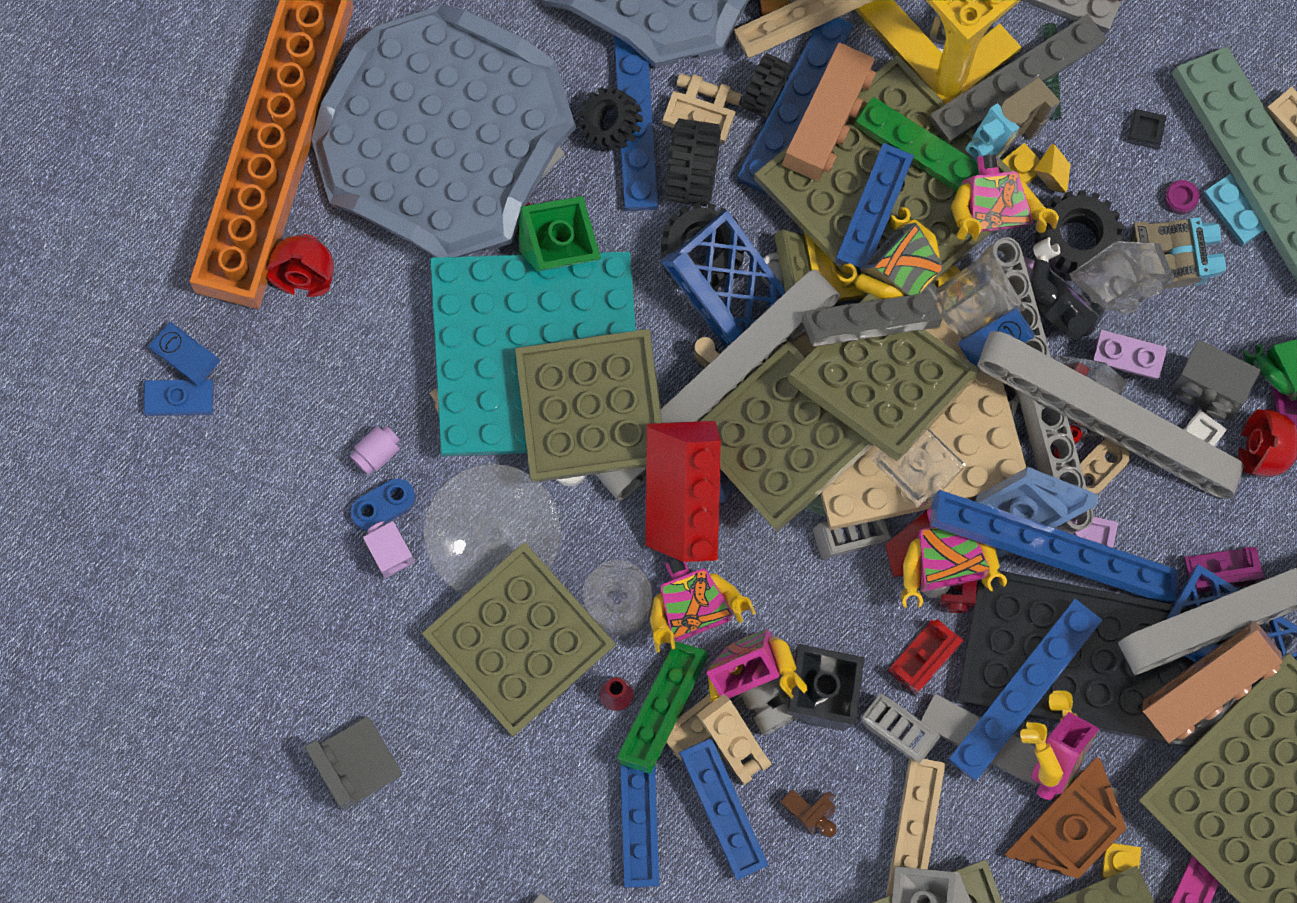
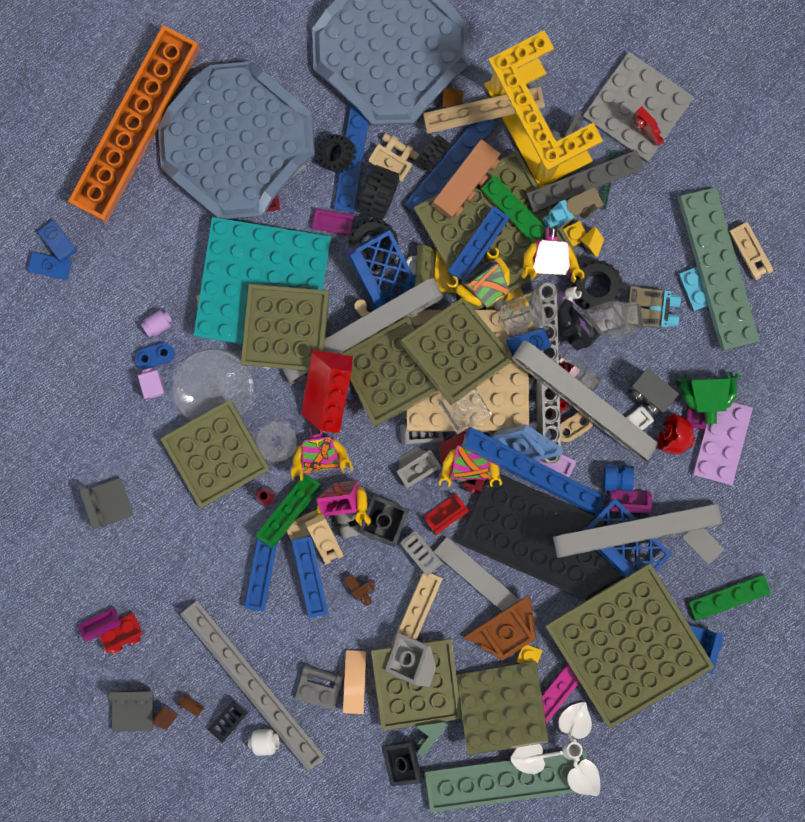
camera: 15 degrees right, 10 degrees up
(301, 264) = (137, 202): red cylinder -> none
(557, 234) = (289, 219): green slope -> none
(628, 229) = (333, 222): none -> magenta tile
(858, 588) = (416, 466): none -> light grey slope
(871, 319) = (458, 315): dark grey plate -> none
(1025, 690) = (498, 547): blue plate -> none
(1063, 750) = (509, 588): torso -> none
(1129, 354) = (607, 365): lavender bracket -> none
(1146, 129) = (655, 227): black tile -> none
(1181, 197) = (665, 274): magenta tile -> none
(1192, 534) = (618, 478): none -> blue wheel
(1213, 682) = (603, 569): nougat brick -> none

